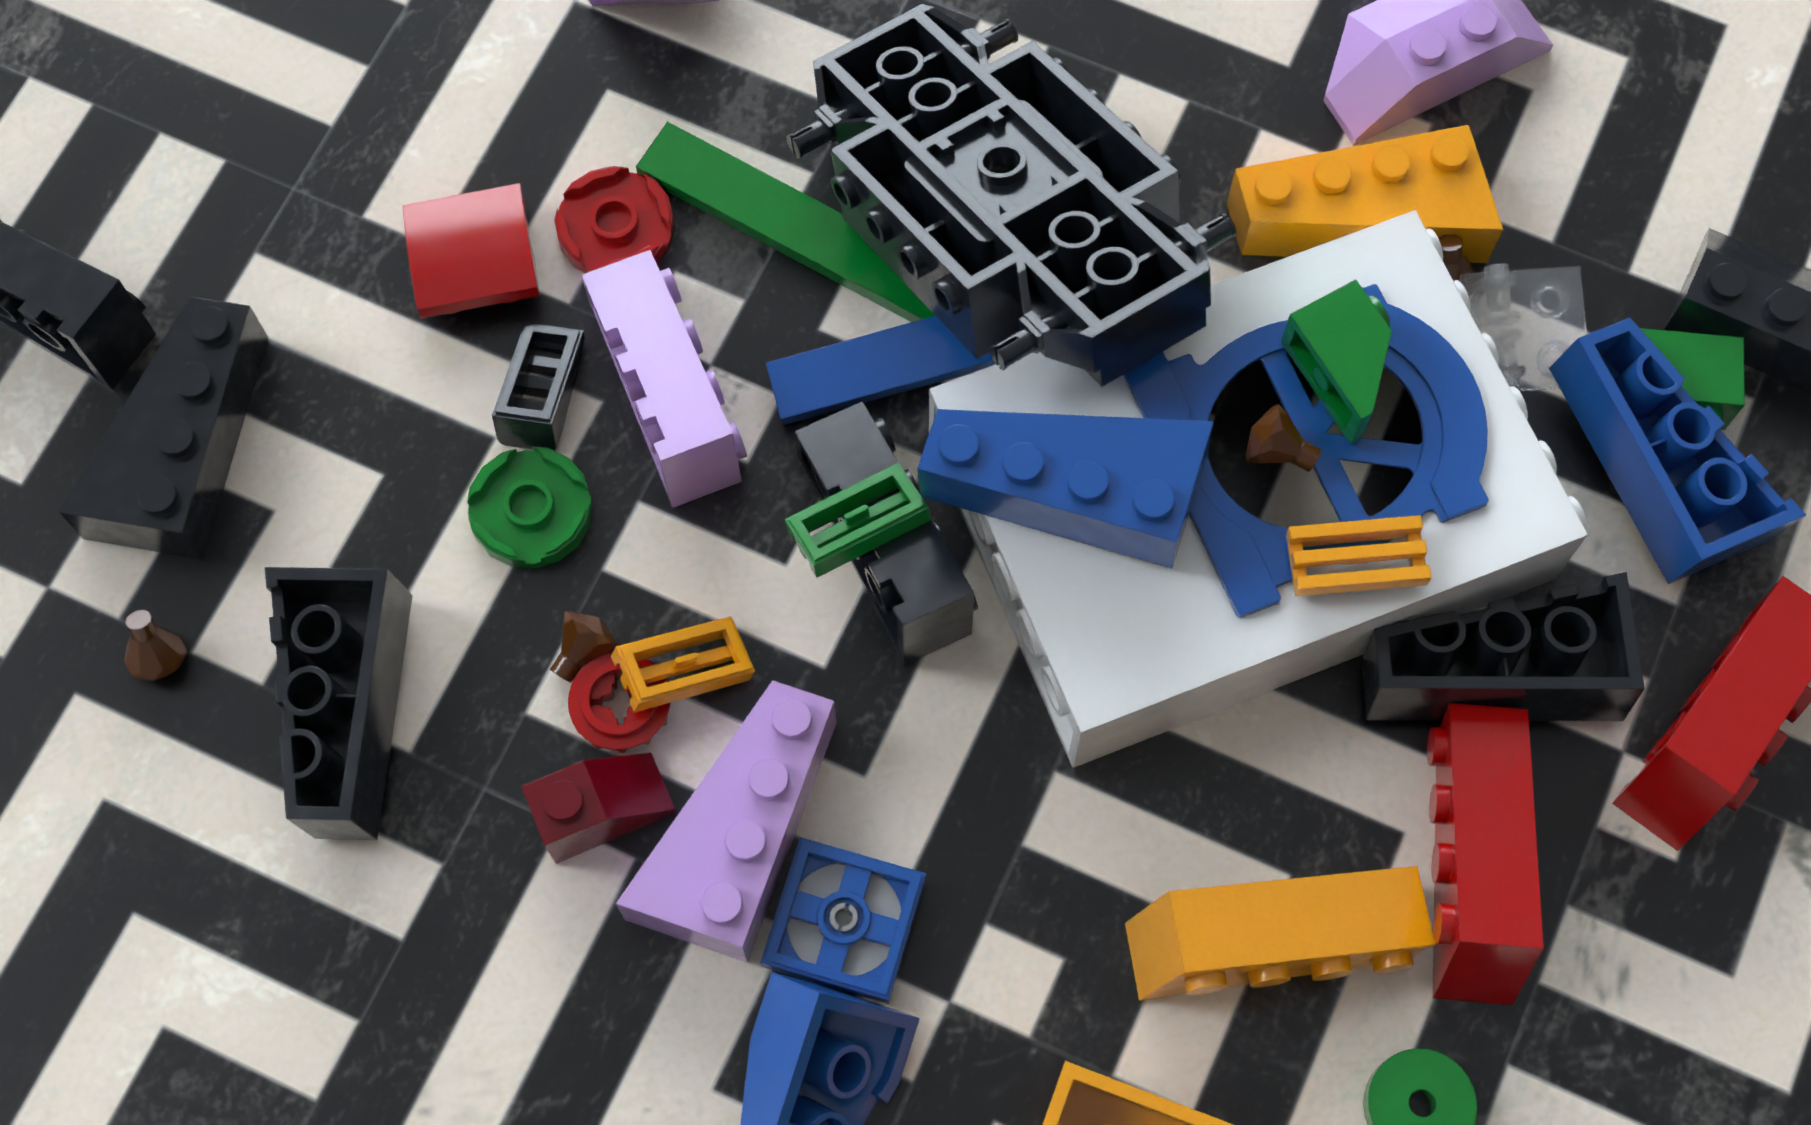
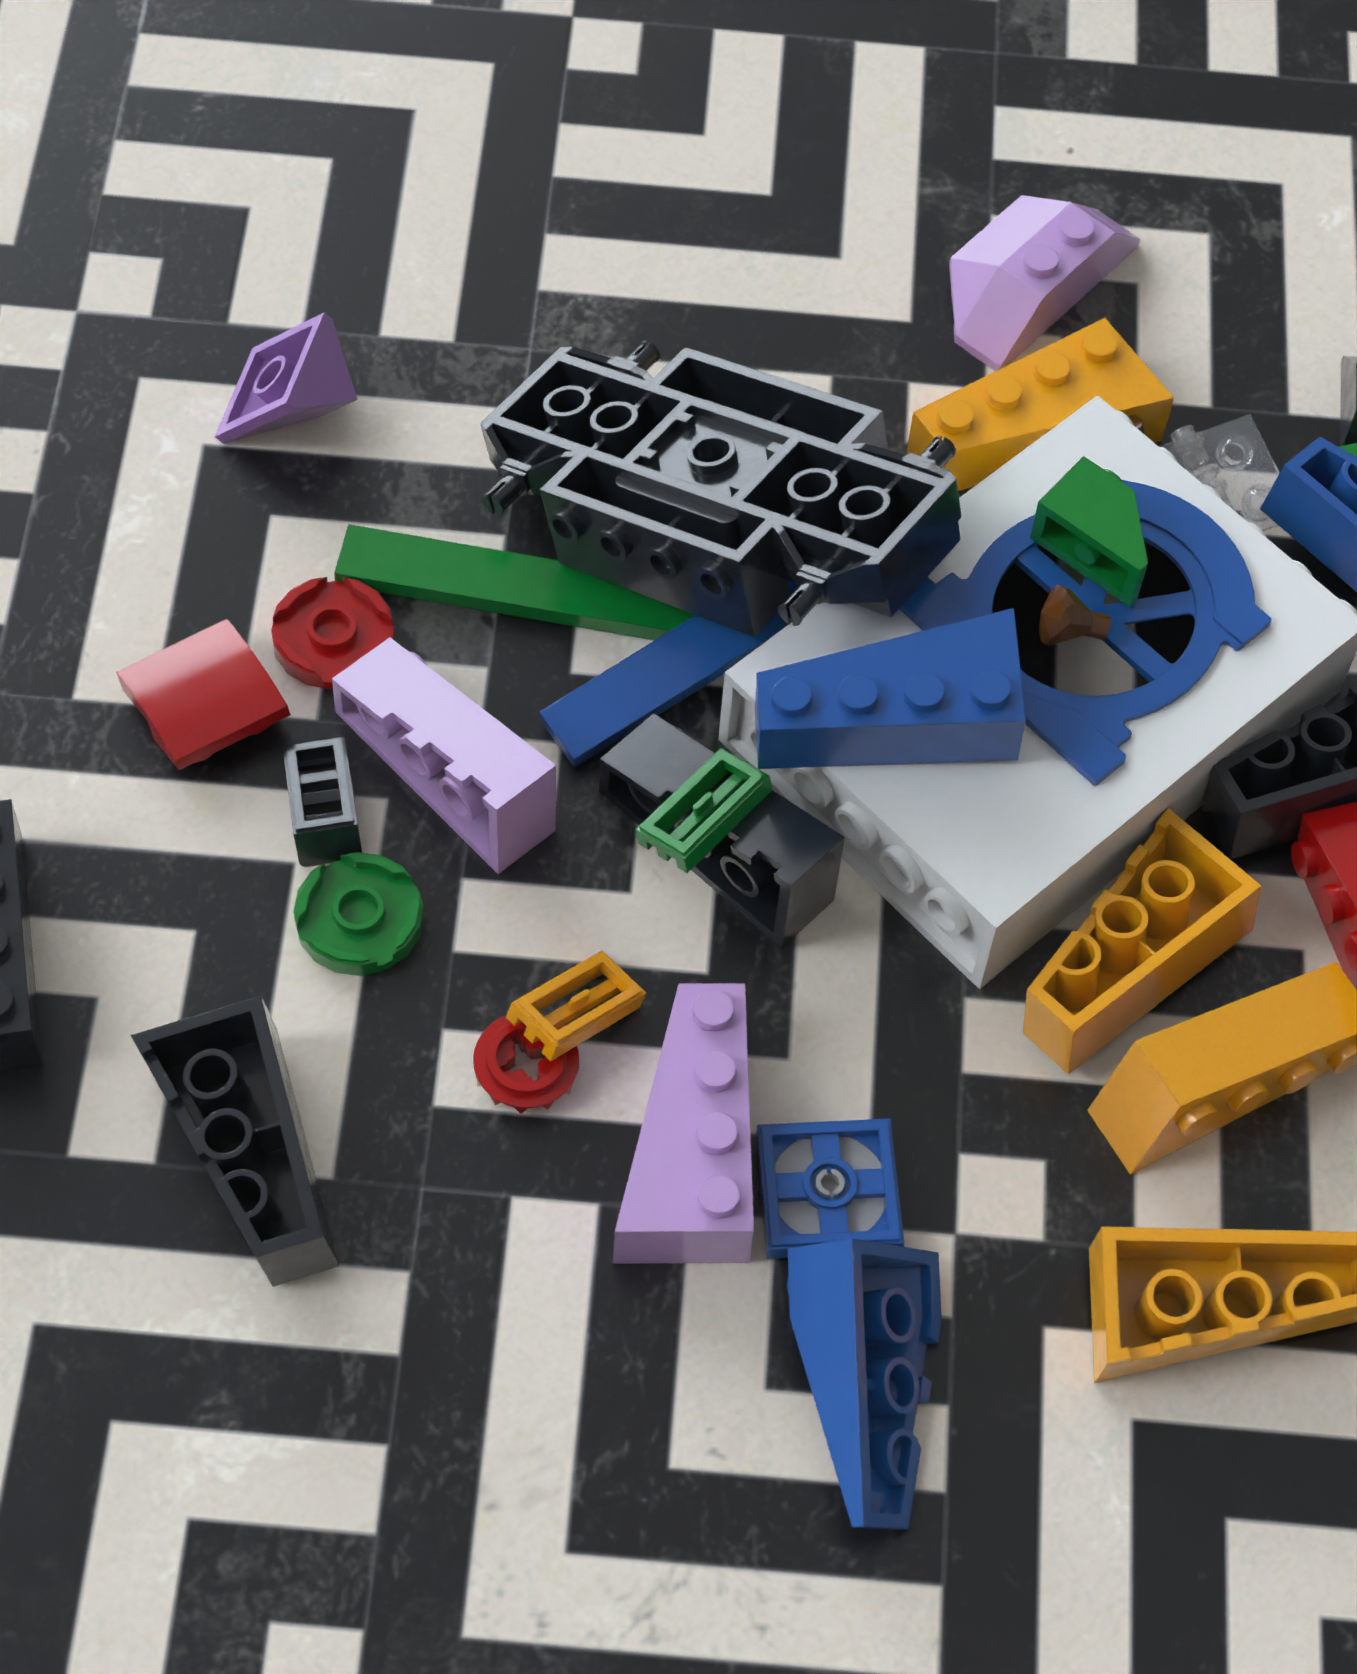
camera: 25 degrees left, 10 degrees down
(151, 649) = (31, 1159): reddish brown rock -> none
(582, 641) = (466, 1017): reddish brown rock -> none
(597, 802) = (542, 1161): dark red slope -> none
(1235, 779) = (1143, 940): none -> light orange wedge
(1358, 531) = (1211, 660): light orange tile -> none

